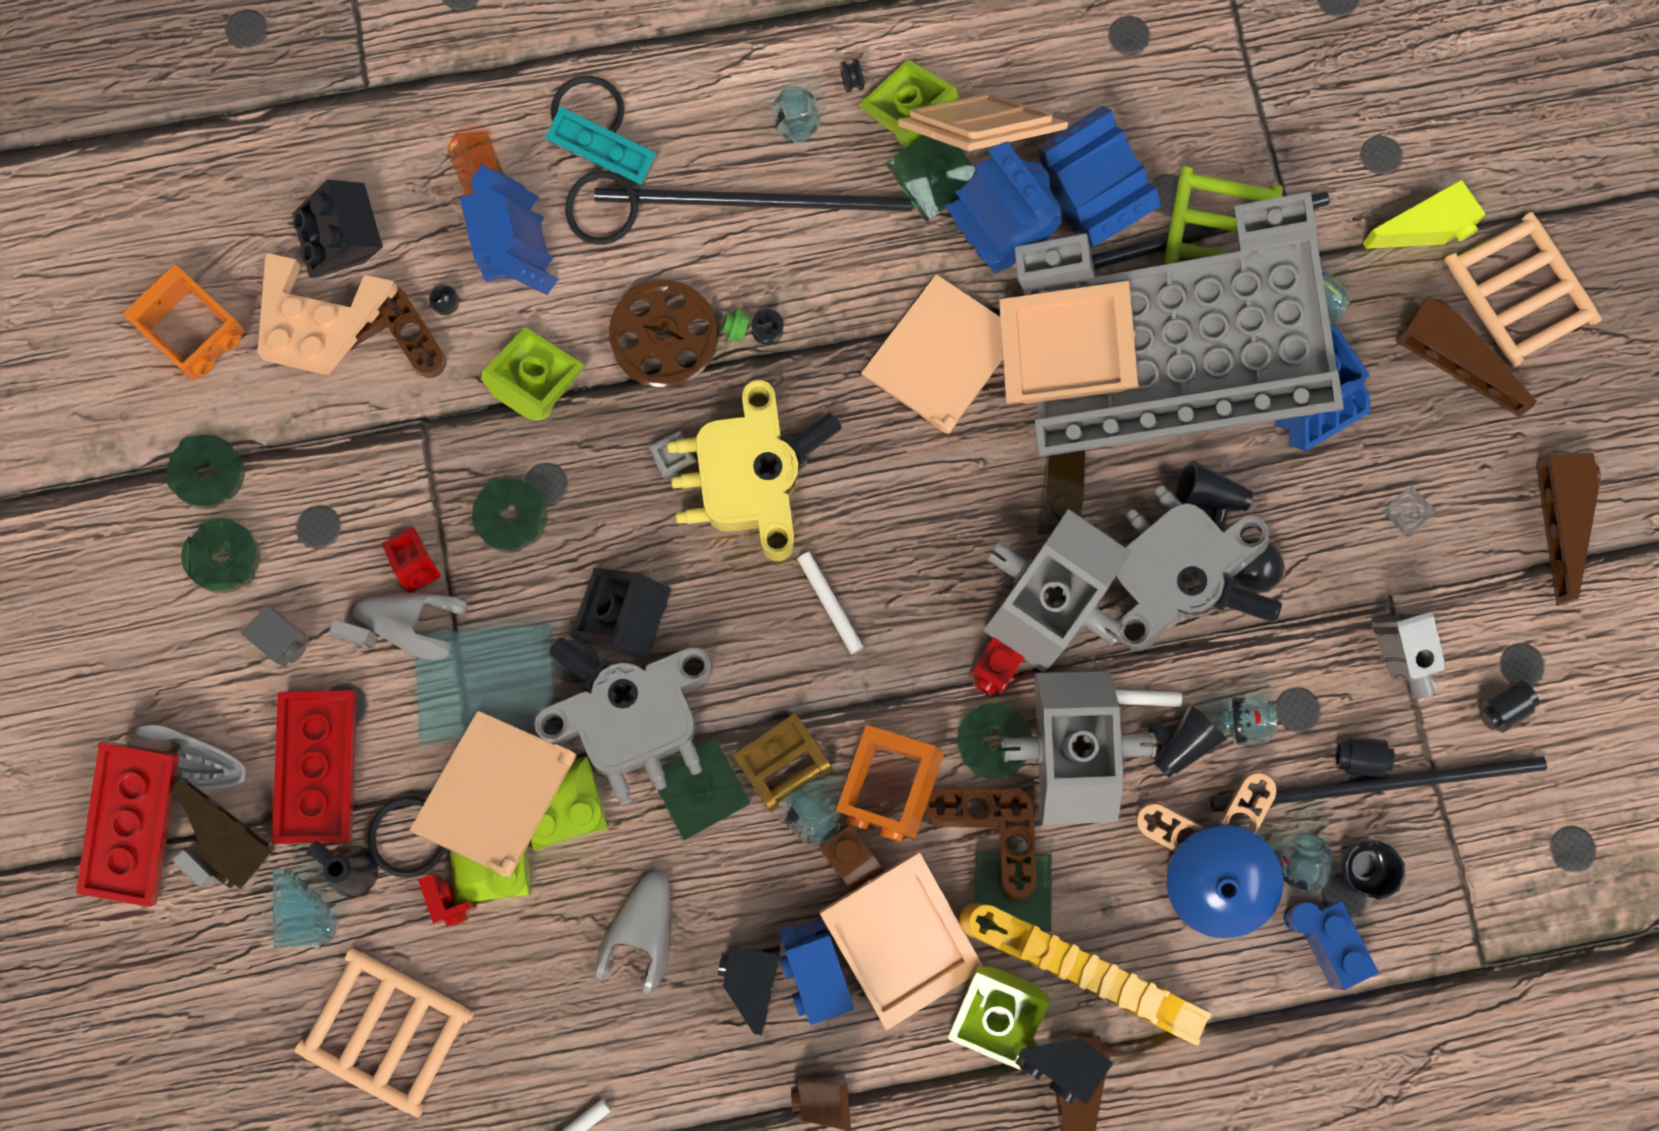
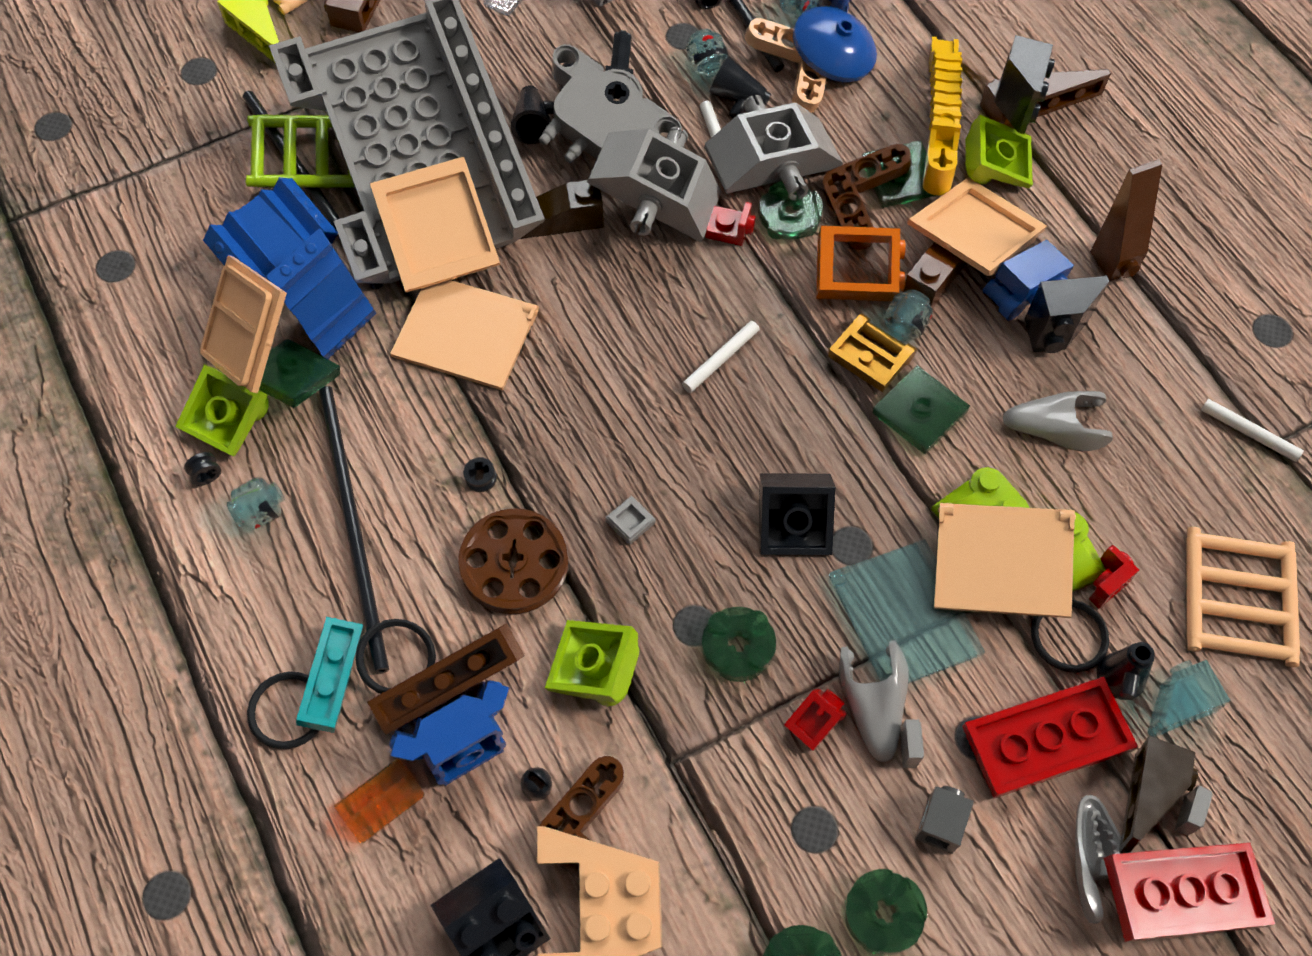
camera: 105 degrees left, 15 degrees down
(562, 254) = (446, 679): none -> reddish brown slope
(631, 733) = (899, 464): light grey piece -> none
(732, 464) = (625, 443): light yellow piece -> none
(735, 325) = (488, 497): bright green plate -> none

